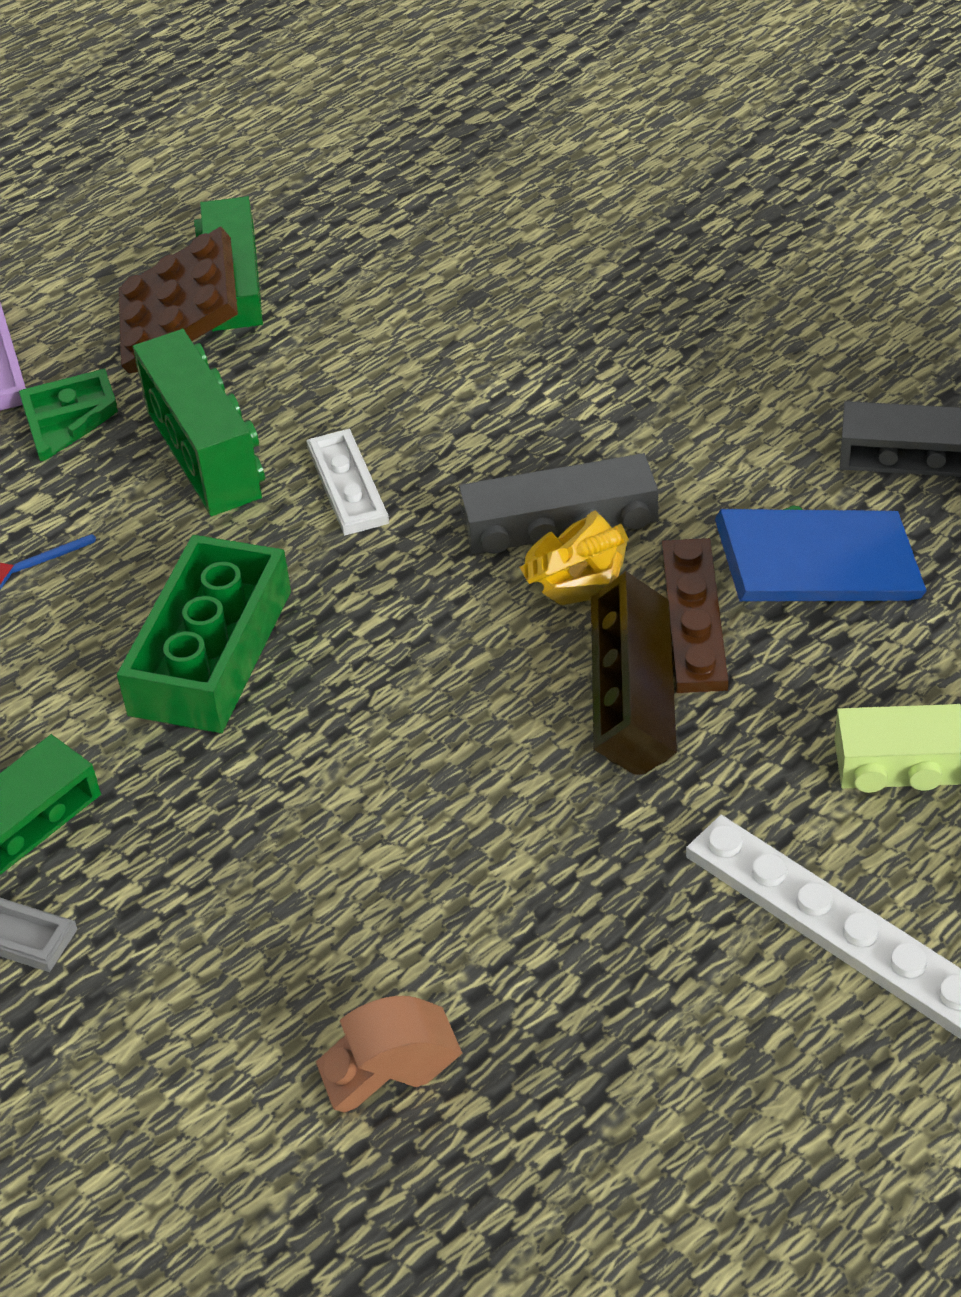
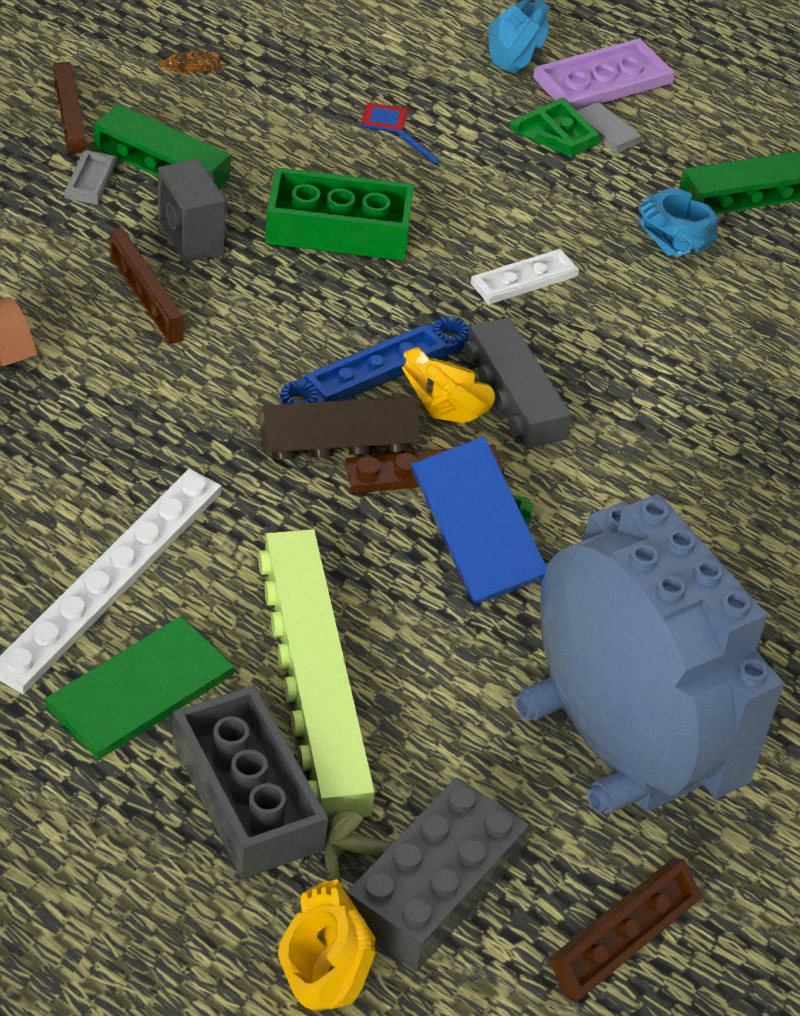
camera: 70 degrees right, 0 degrees up
(75, 363) = (611, 129): none -> light grey tile
(171, 787) = (192, 210): none -> dark grey brick
(181, 291) = (683, 156): reddish brown plate -> none
(200, 421) = (542, 179): green brick -> none
(302, 867) = (146, 286): none -> reddish brown tile
(304, 321) = (679, 222): none -> dark azure helmet
(507, 640) = (375, 364): none -> blue plate

